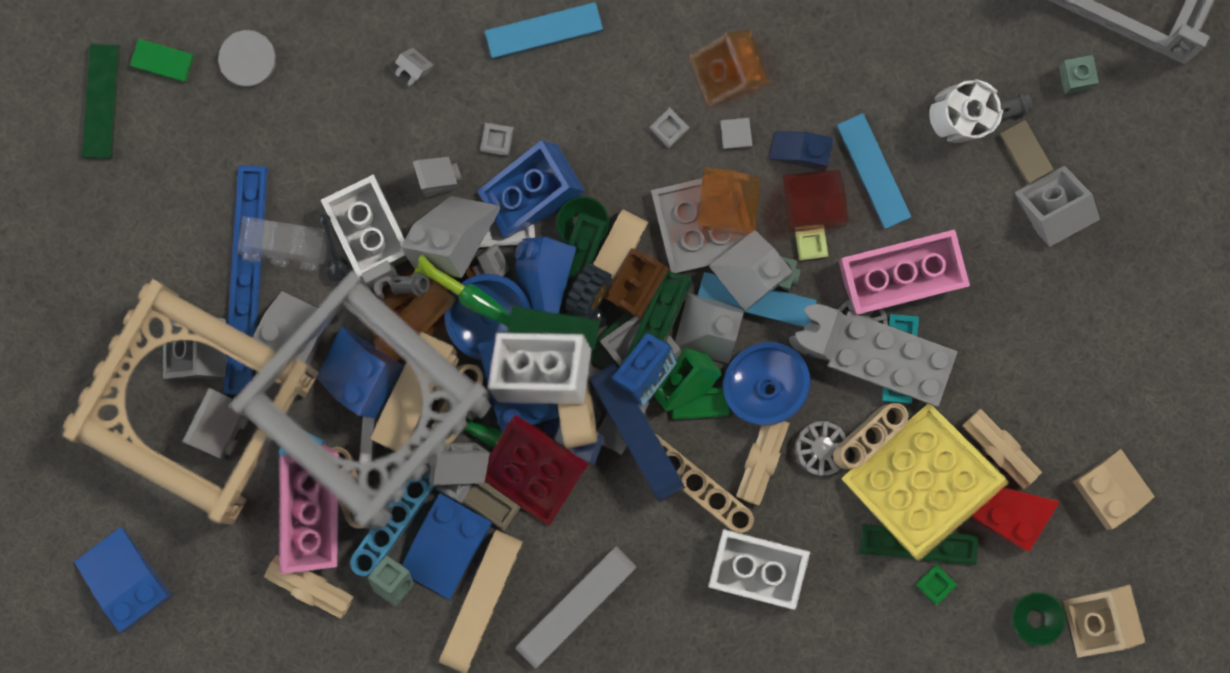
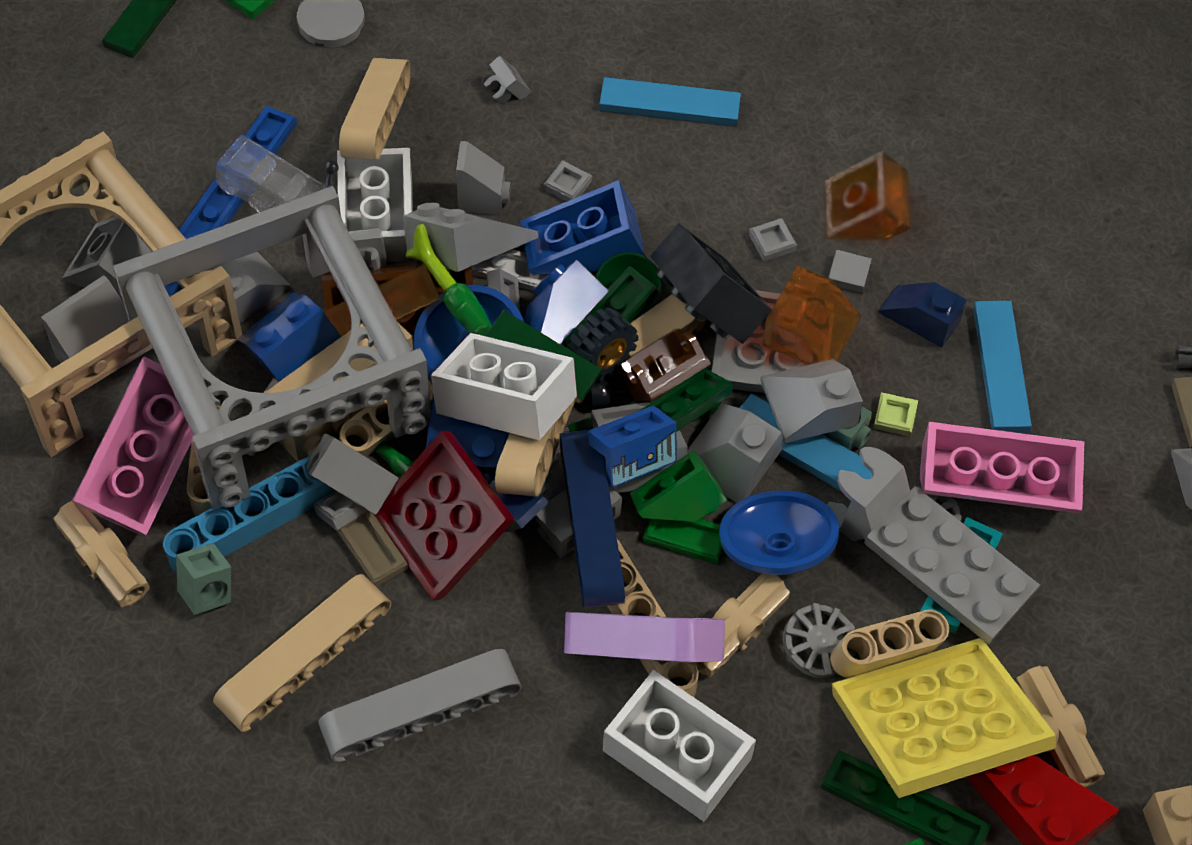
camera: 15 degrees right, 25 degrees down
(329, 146) = (374, 109): none -> tan beam
(416, 284) = (401, 257): dark grey pin -> none
(445, 546) = (294, 569): blue slope -> none
(645, 208) = (709, 285): none -> black brick
(711, 509) = (645, 637): none -> lavender beam
(815, 200) = (917, 371): clear red slope -> none
(966, 111) = (1146, 338): white cylinder -> none

